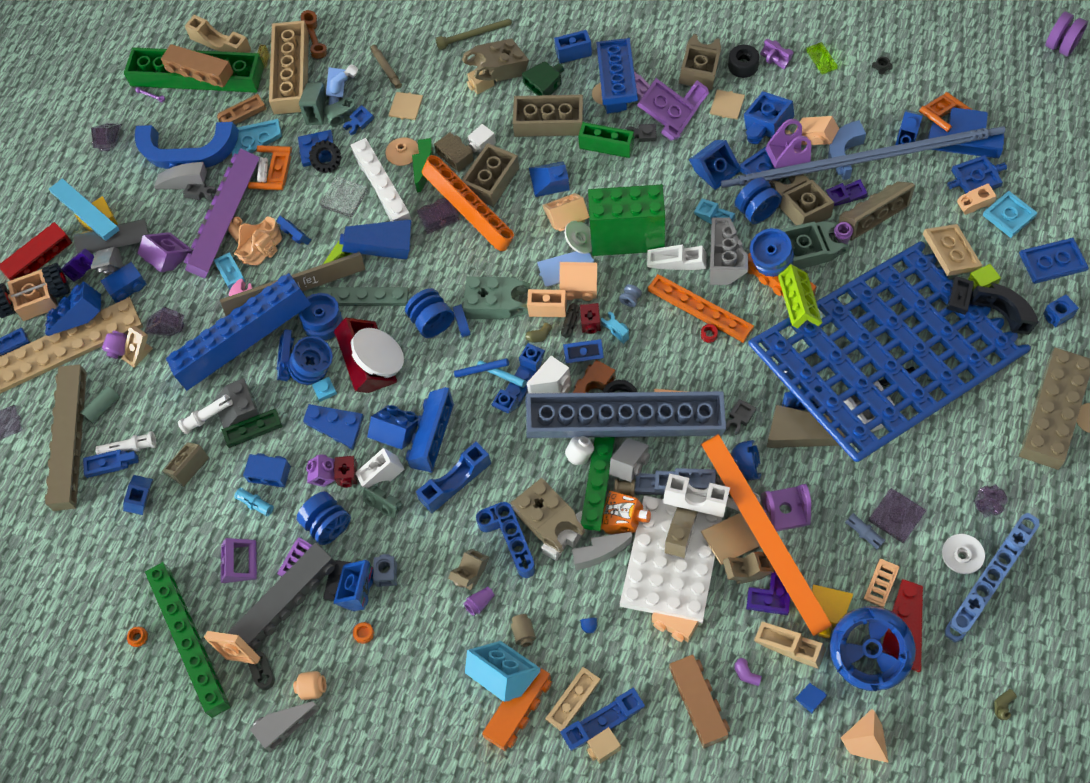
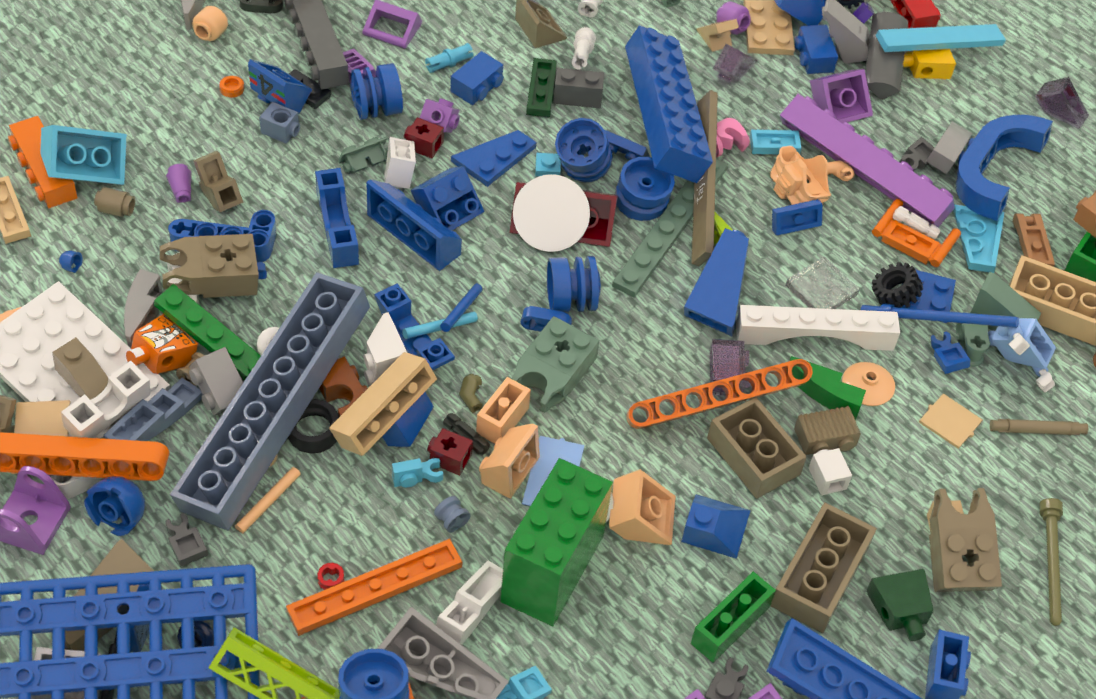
camera: 105 degrees right, 10 degrees down
(345, 155) = (945, 316): none -> blue bar
(592, 350) = (383, 403): none -> tan brick

